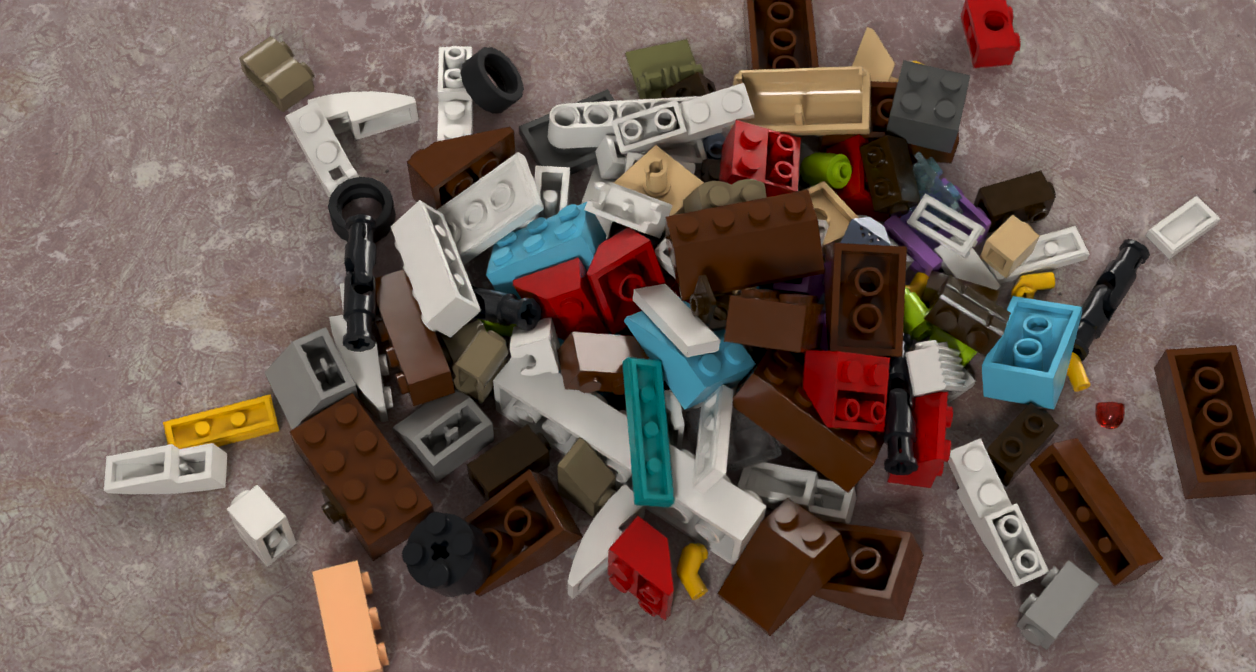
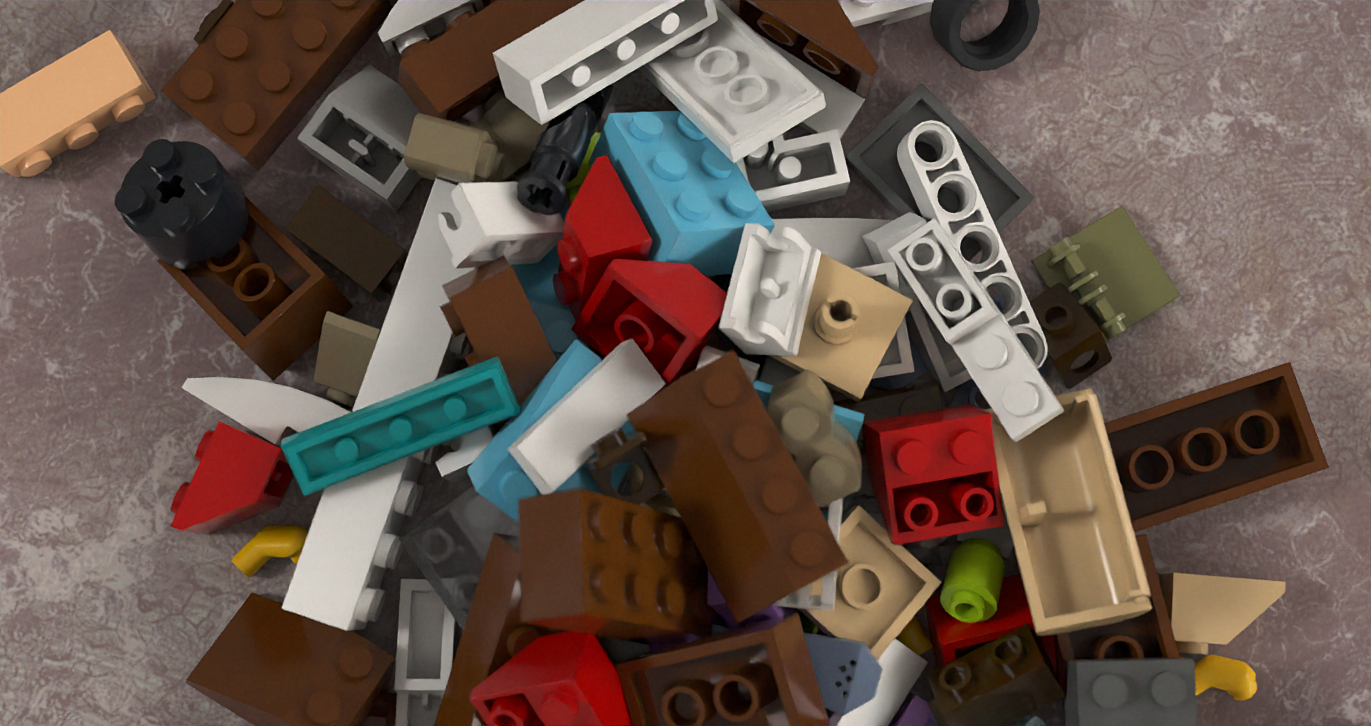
camera: 75 degrees right, 20 degrees up
(713, 439) = (418, 525): white tile -> none

